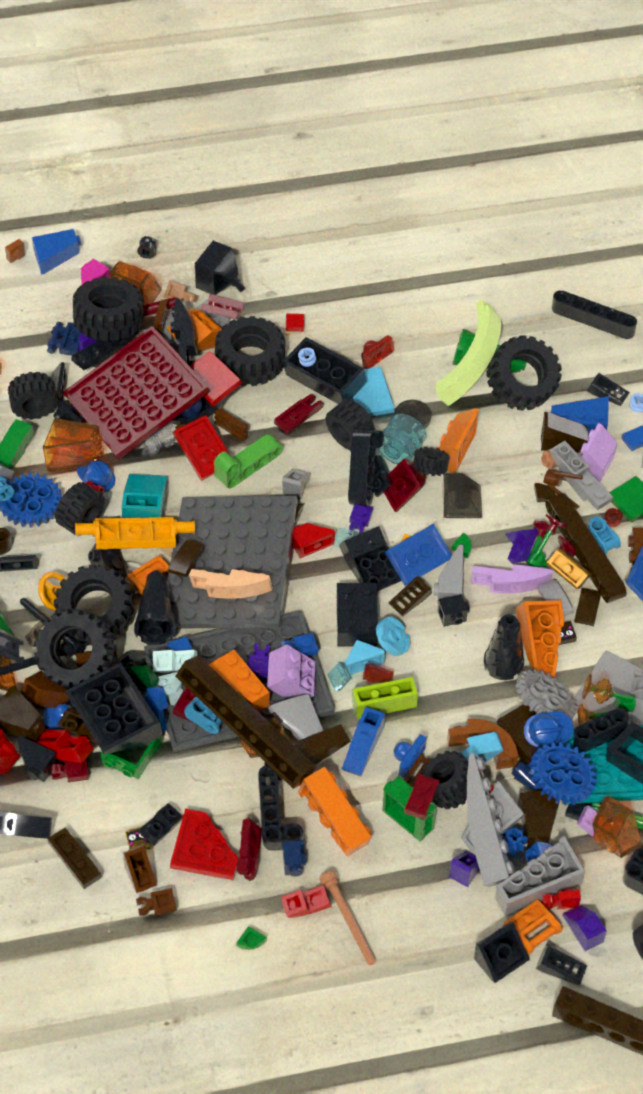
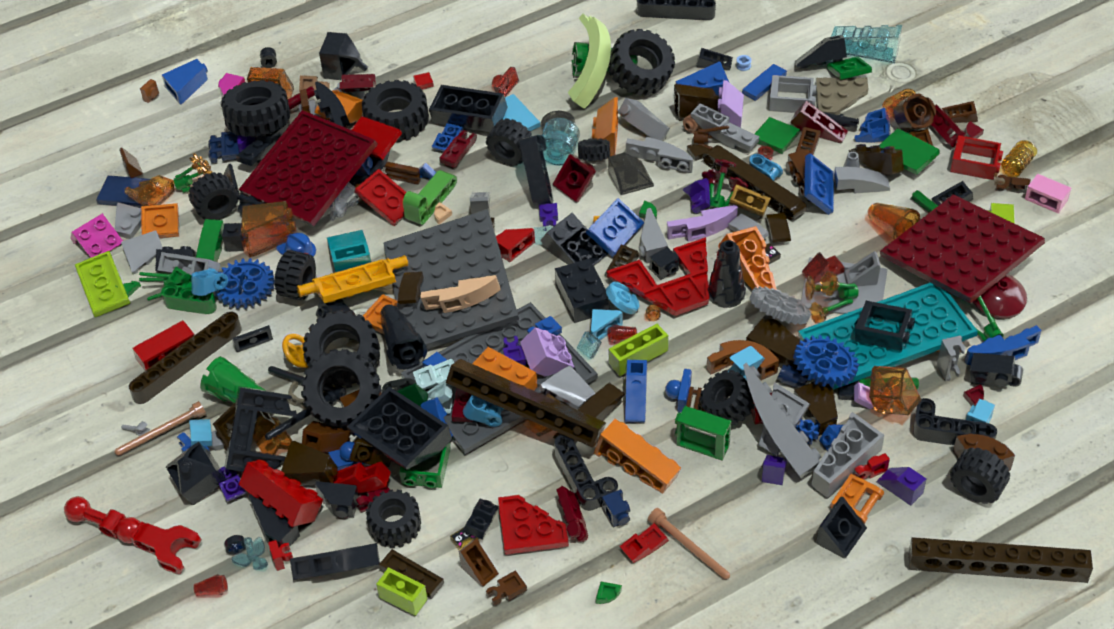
camera: 15 degrees left, 5 degrees down
(13, 366) = (183, 181): none -> plant
(34, 445) = (233, 237): none -> black brick
(57, 873) = (402, 591): none -> lime brick
(76, 782) = (398, 531): none -> black tyre
(253, 481) = (441, 213): none -> light nougat tile
(256, 430) = (426, 171): none -> blue tile
(289, 398) = (443, 140): none -> blue slope
(307, 352) = (449, 94): light blue bush -> none
(381, 477) = (556, 178): black slope -> none
(420, 665) = (656, 313): none -> clear orange hinge
(421, 796) = (714, 416): dark red plate -> none
(452, 649) = (677, 294): none -> red wing
(500, 438) = (643, 119): none -> light grey slope
(506, 485) = (665, 154): none -> light grey slope
(548, 728) = (795, 328): blue piece -> none
(551, 969) = (884, 526): black slope -> none
(600, 729) = (841, 316): black beam -> none
(612, 668) = (819, 266): none -> clear red slope

